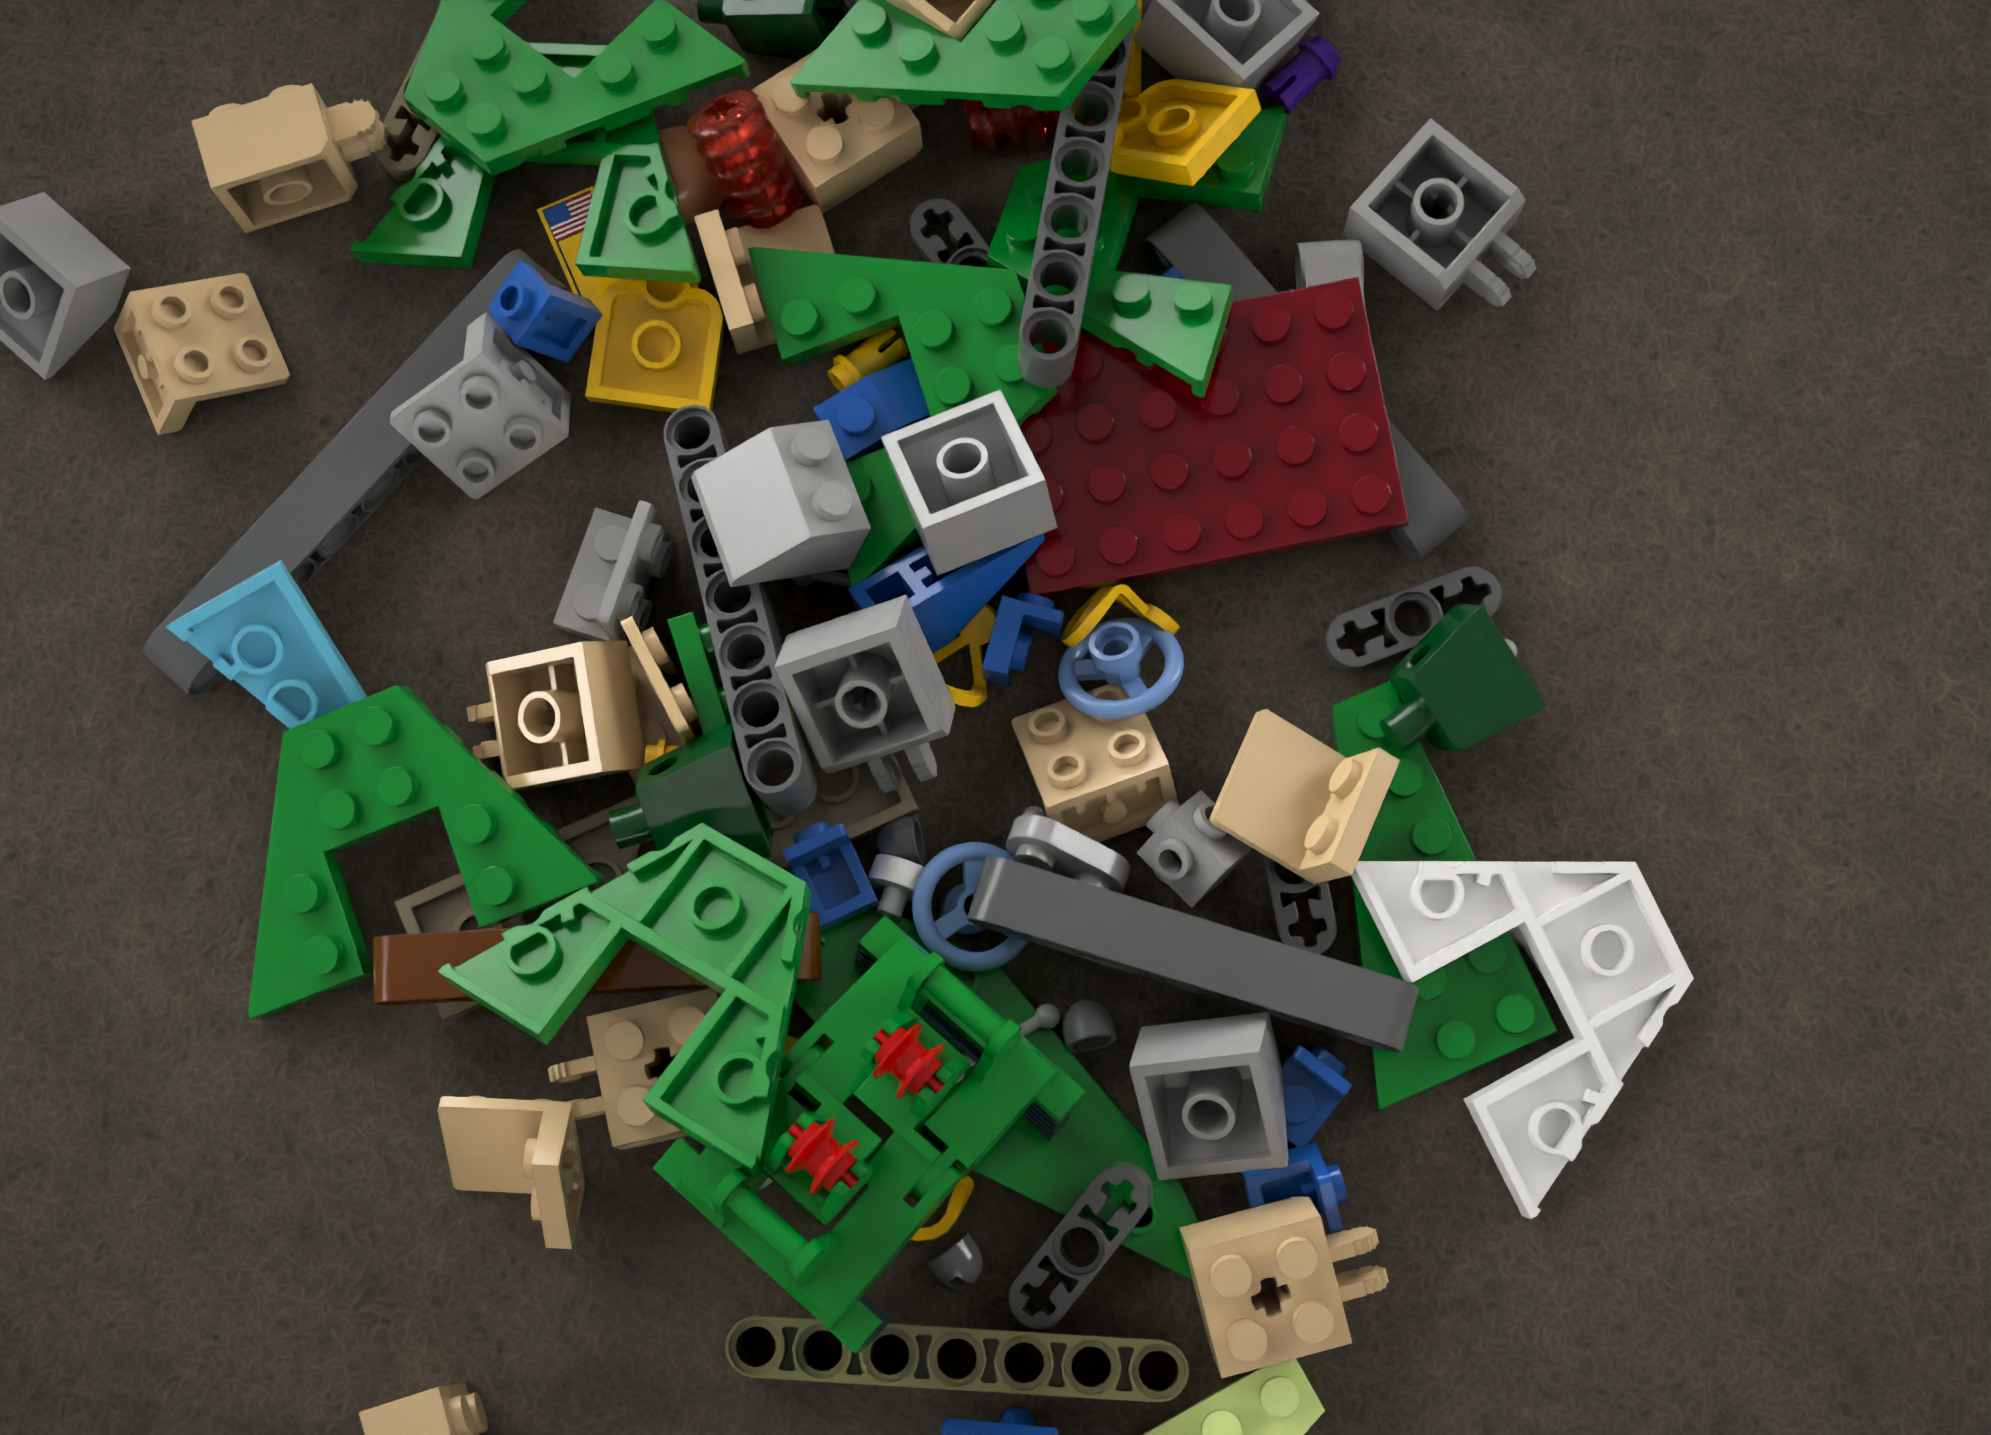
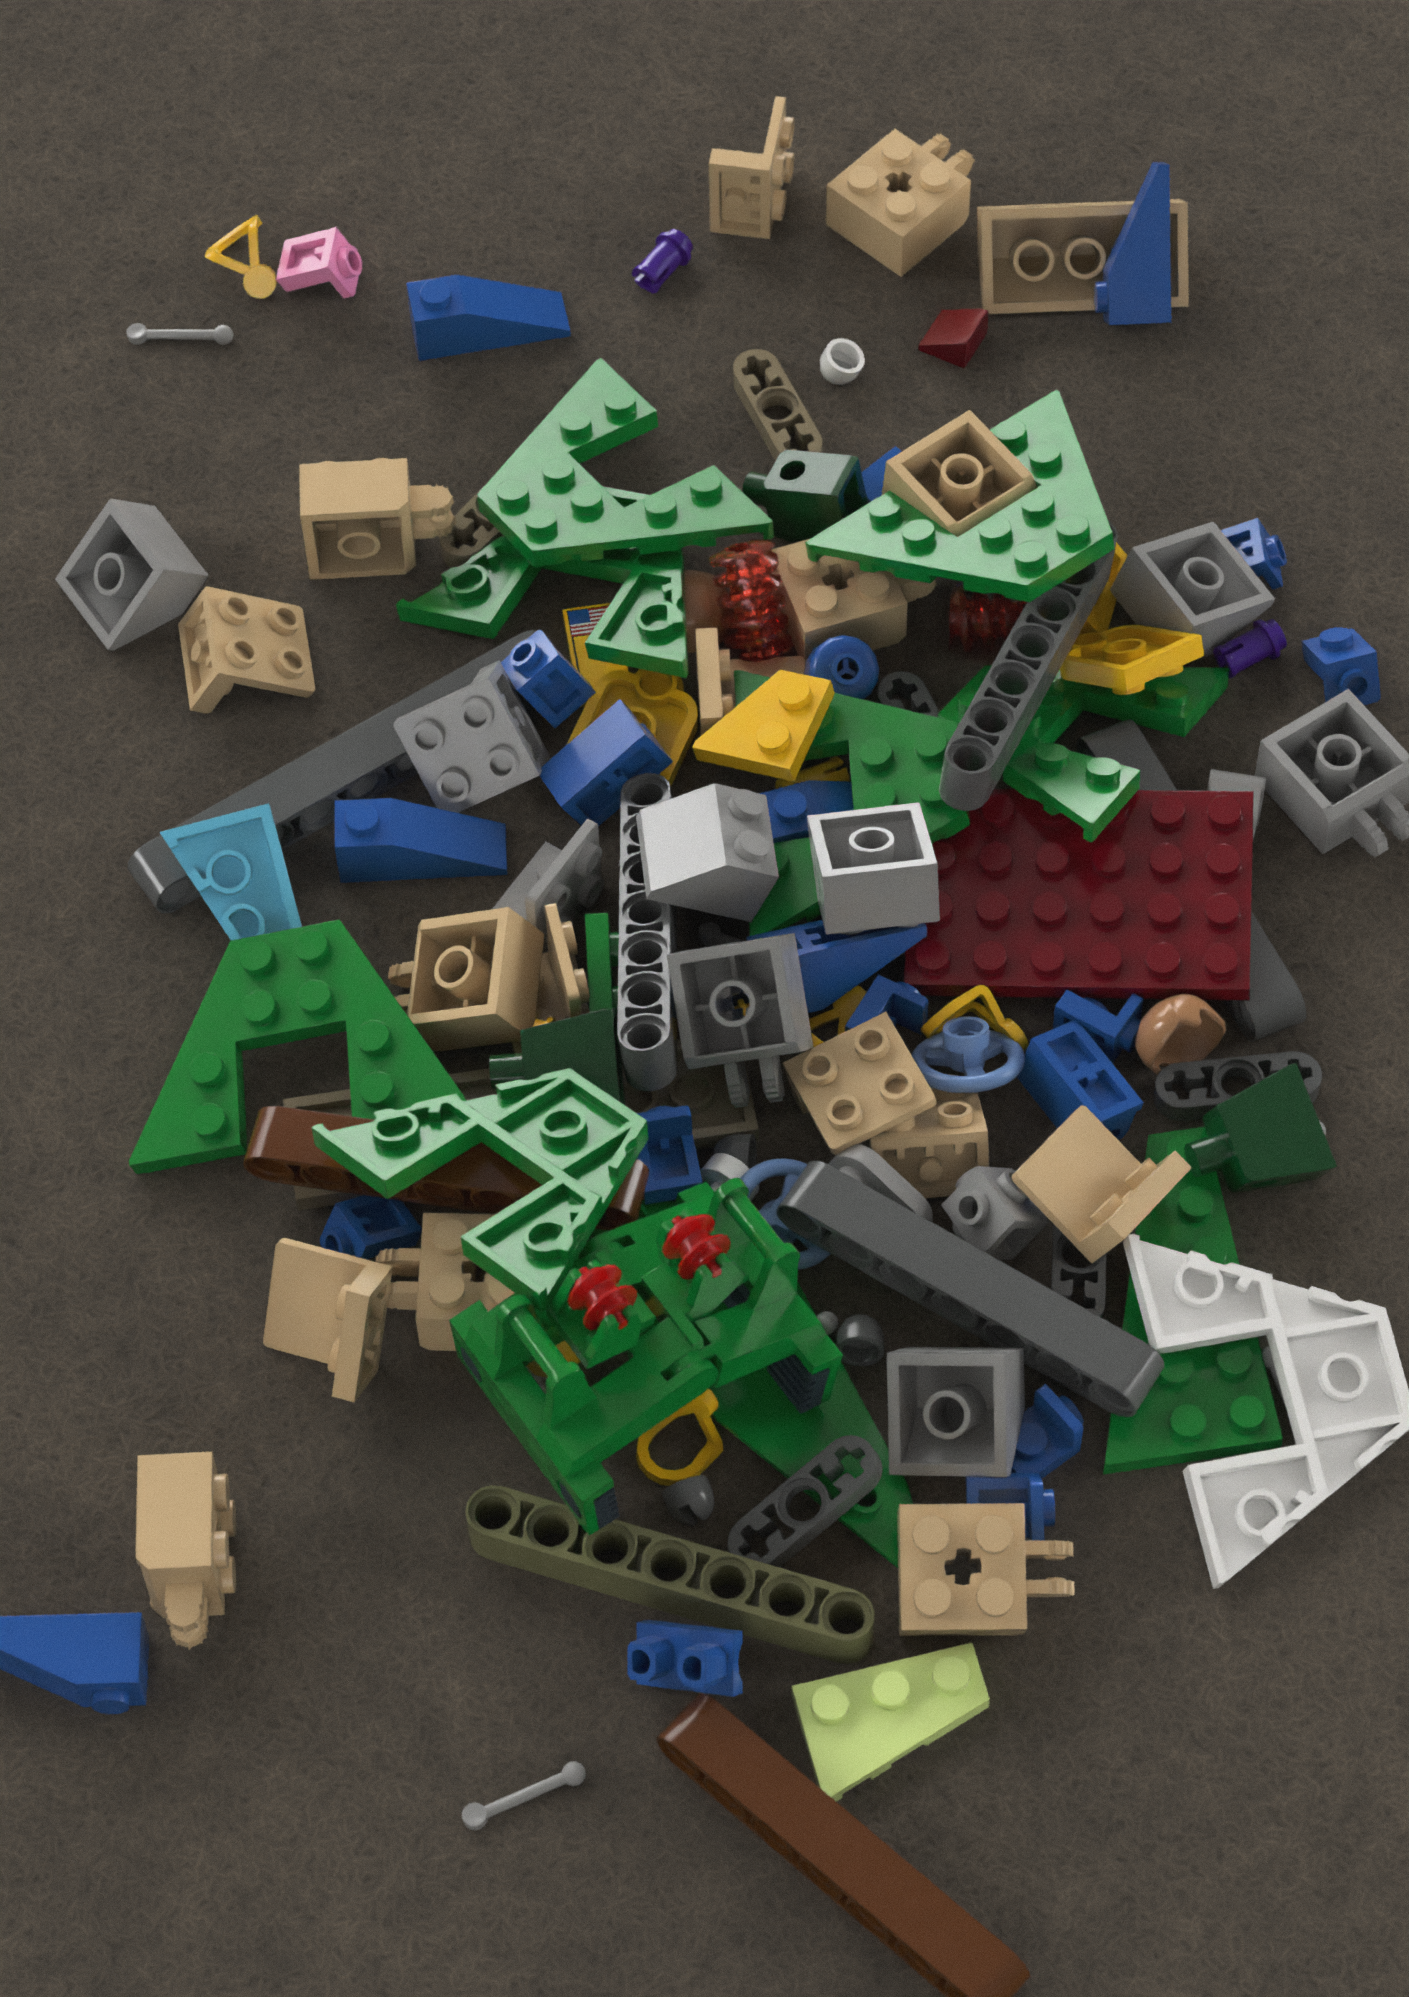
camera: 10 degrees right, 20 degrees down
(453, 545) = (414, 841): none -> blue slope
(517, 1055) = (369, 1225): none -> blue bracket
(629, 405) = (597, 763): none -> blue hinge
(809, 321) = (770, 727): none -> yellow wing
(858, 202) = (856, 661): none -> blue head
(1019, 742) = (859, 1083): none -> tan bracket
(1241, 591) = (1108, 1031): none -> blue bracket
(1247, 665) = (1069, 1071): none -> blue hinge
(1336, 579) = (1178, 1031): none -> medium nougat hair
(1409, 73) = (1344, 663): none -> blue bracket

